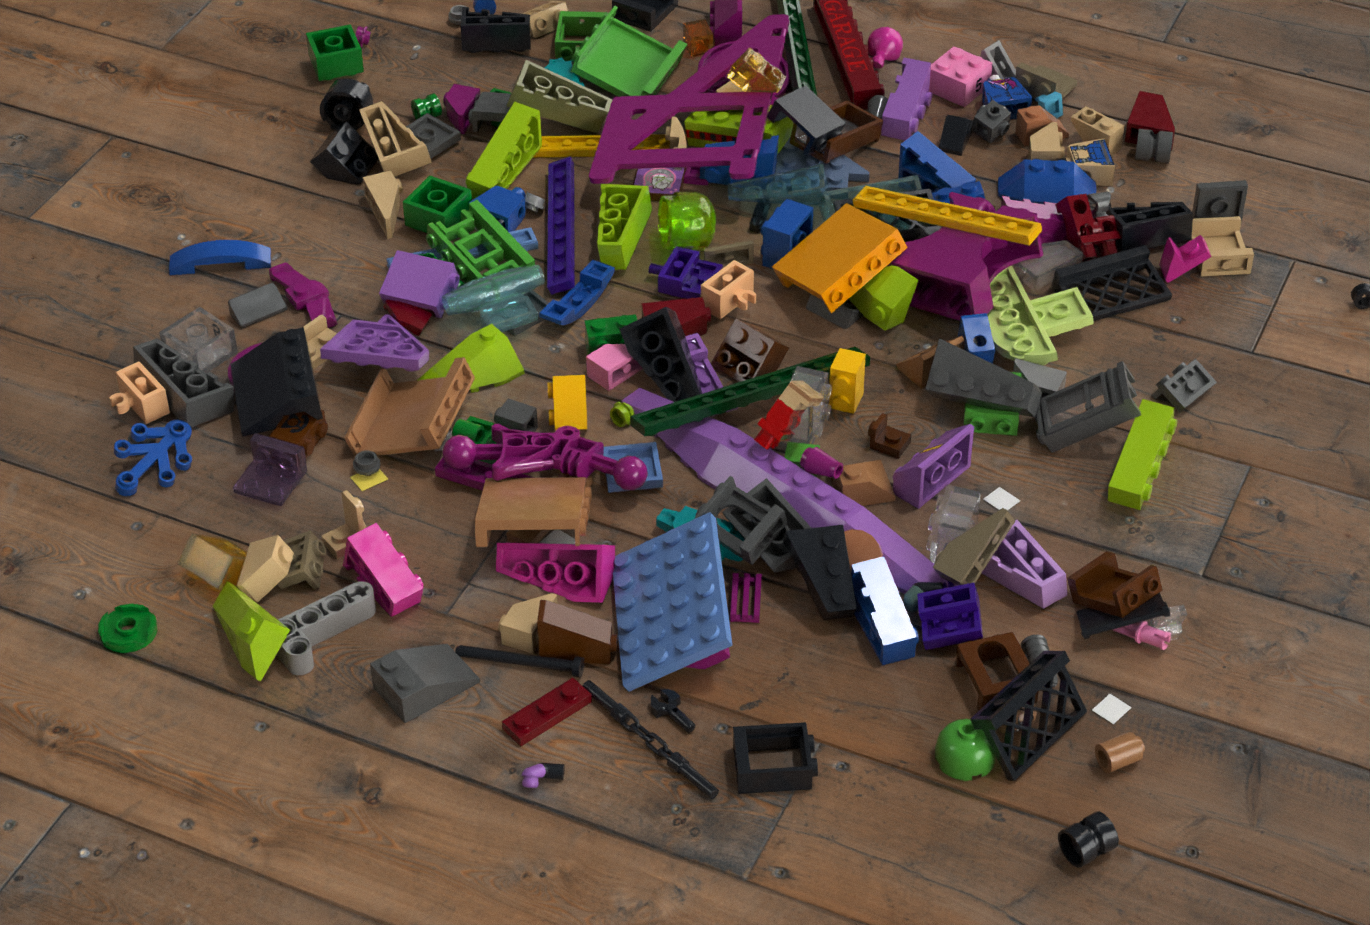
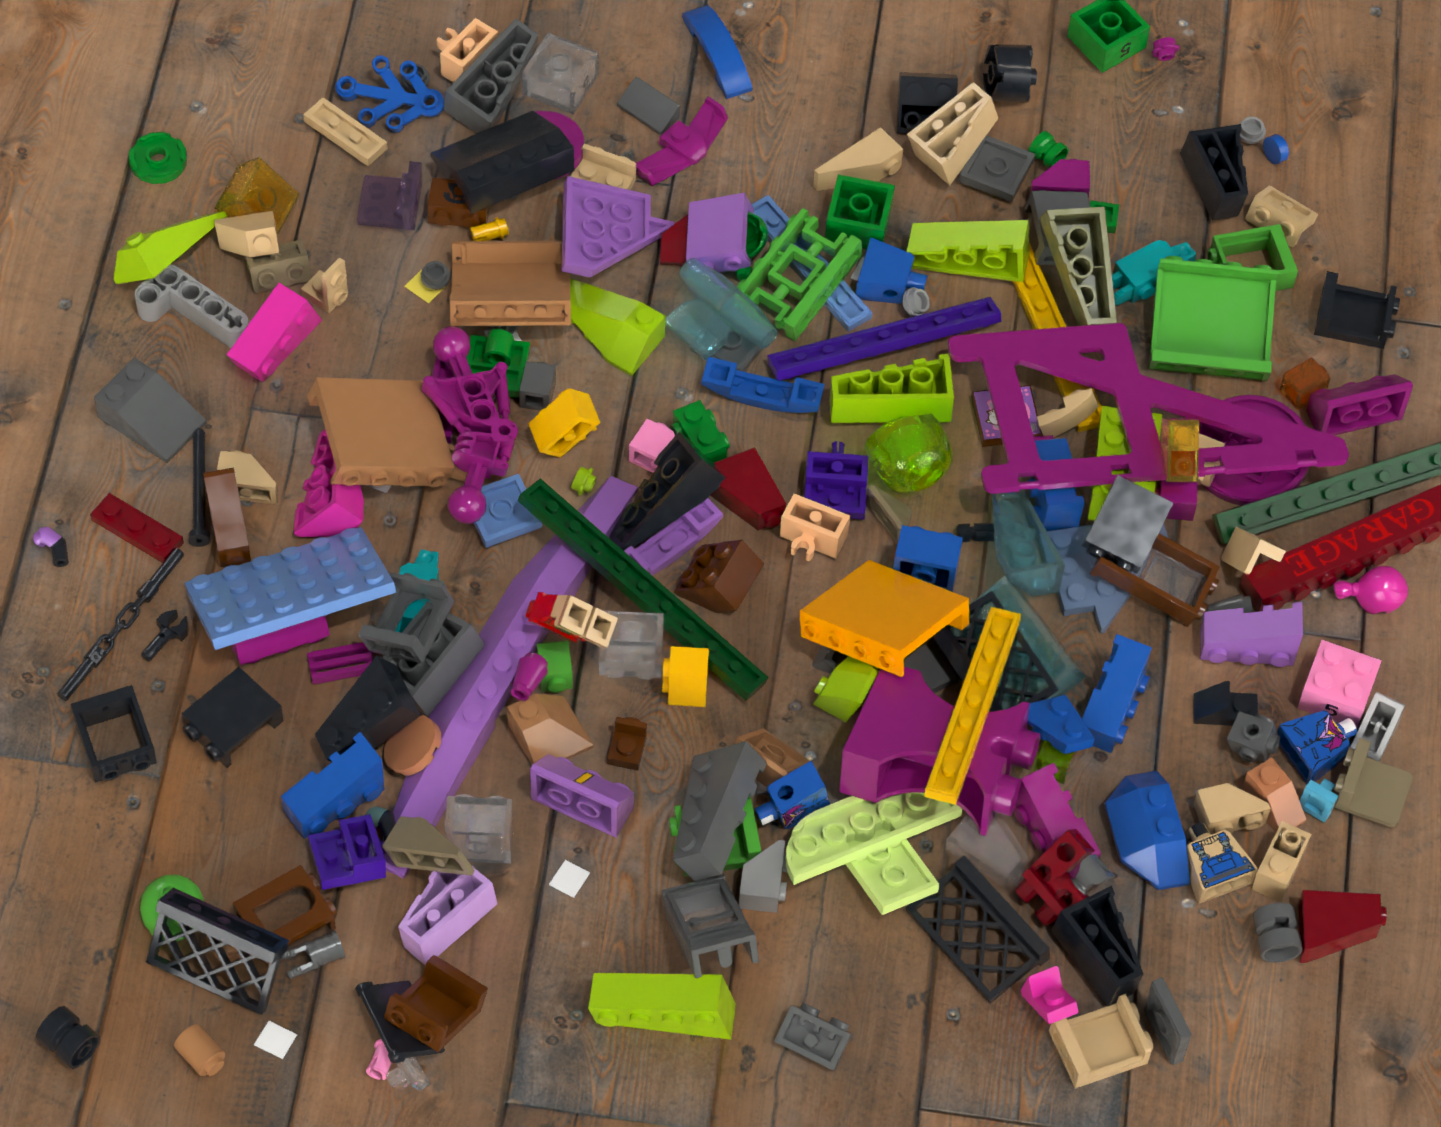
camera: 70 degrees right, 15 degrees up
(176, 492) = (345, 131): none -> tan plate
(337, 417) = (490, 231): none -> yellow pin
(784, 672) = (230, 715): none -> black panel
(838, 84) = (1245, 548): none -> tan panel

